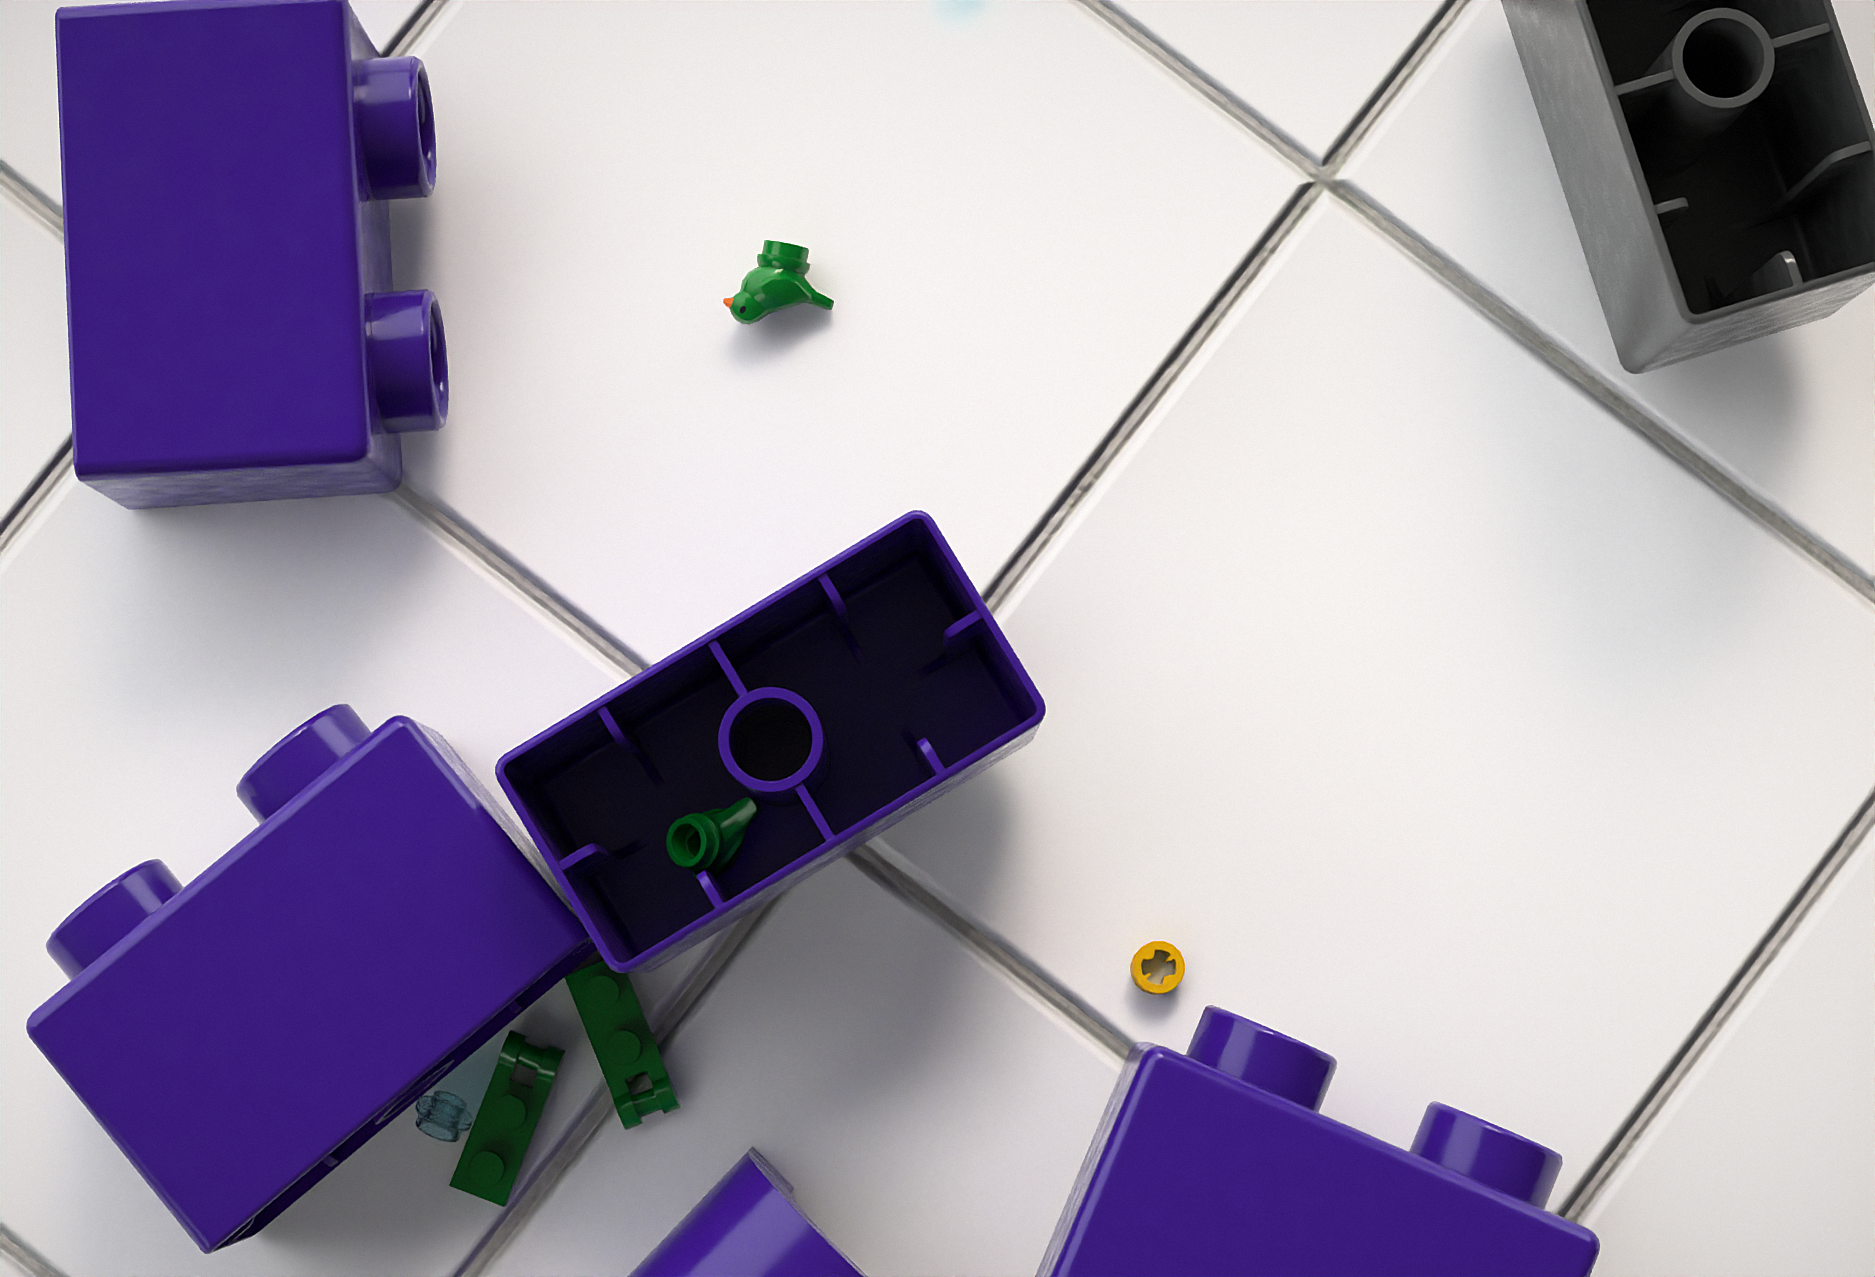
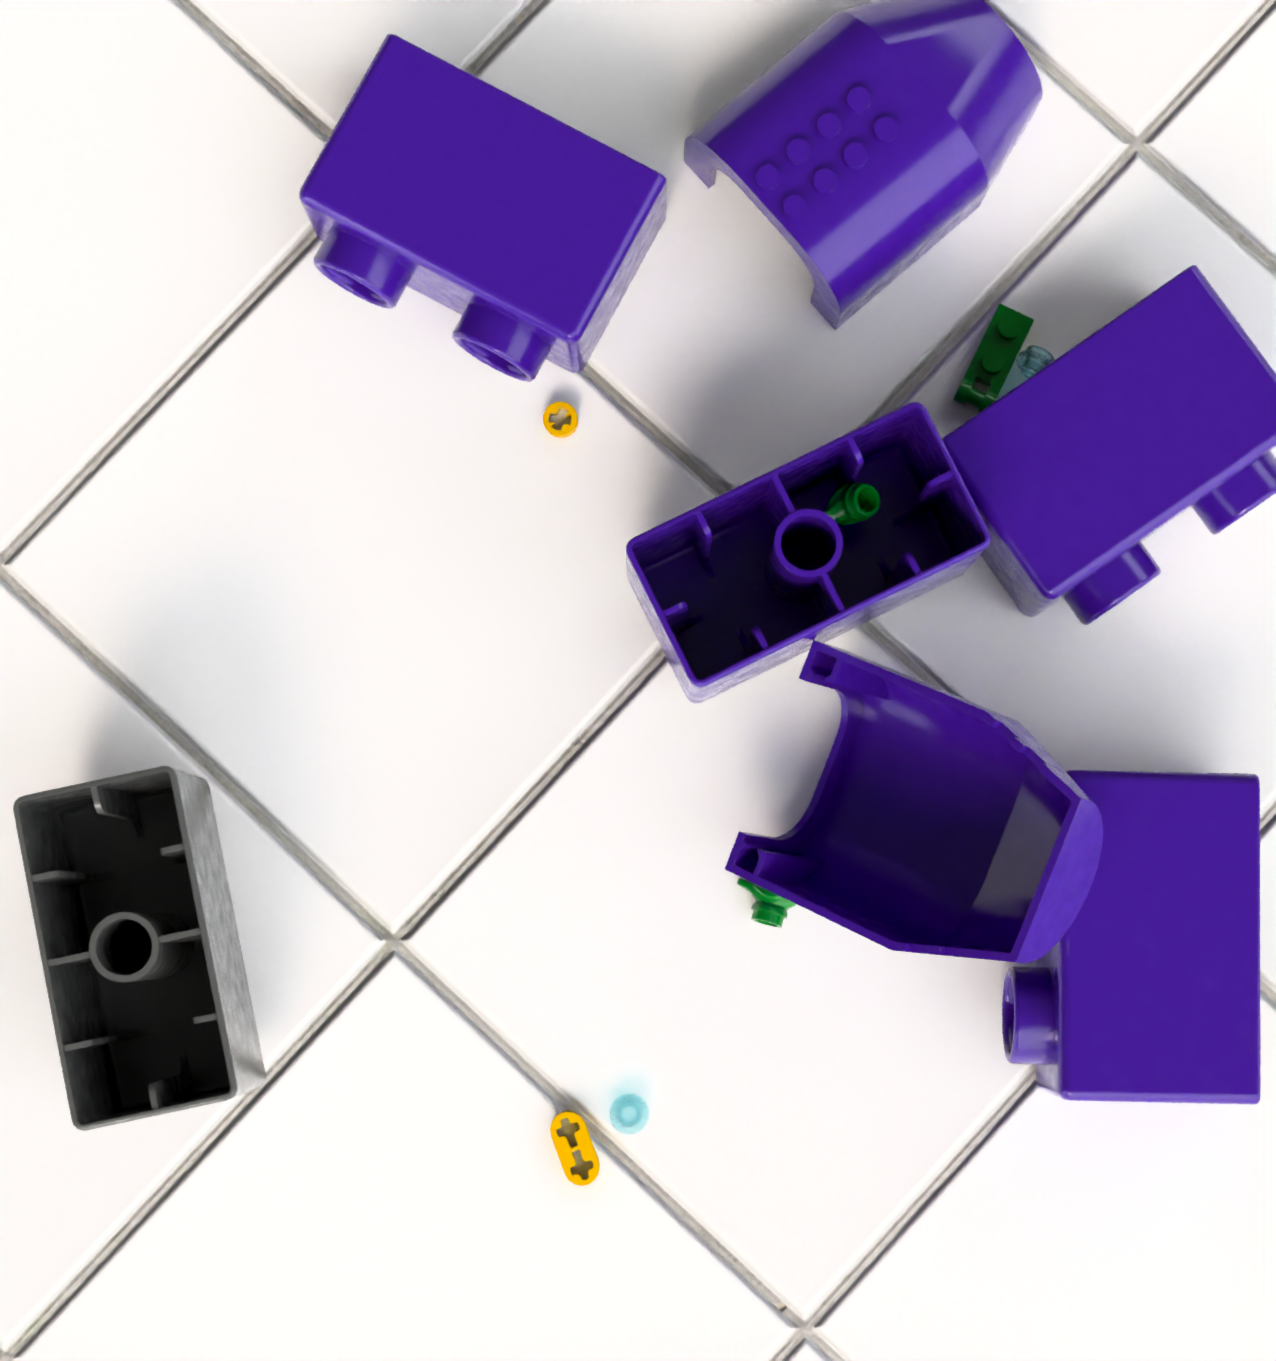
camera: 170 degrees left, 0 degrees up
(560, 355) = (932, 824): none -> dark purple windscreen
(622, 1041) = (914, 389): green plate -> none

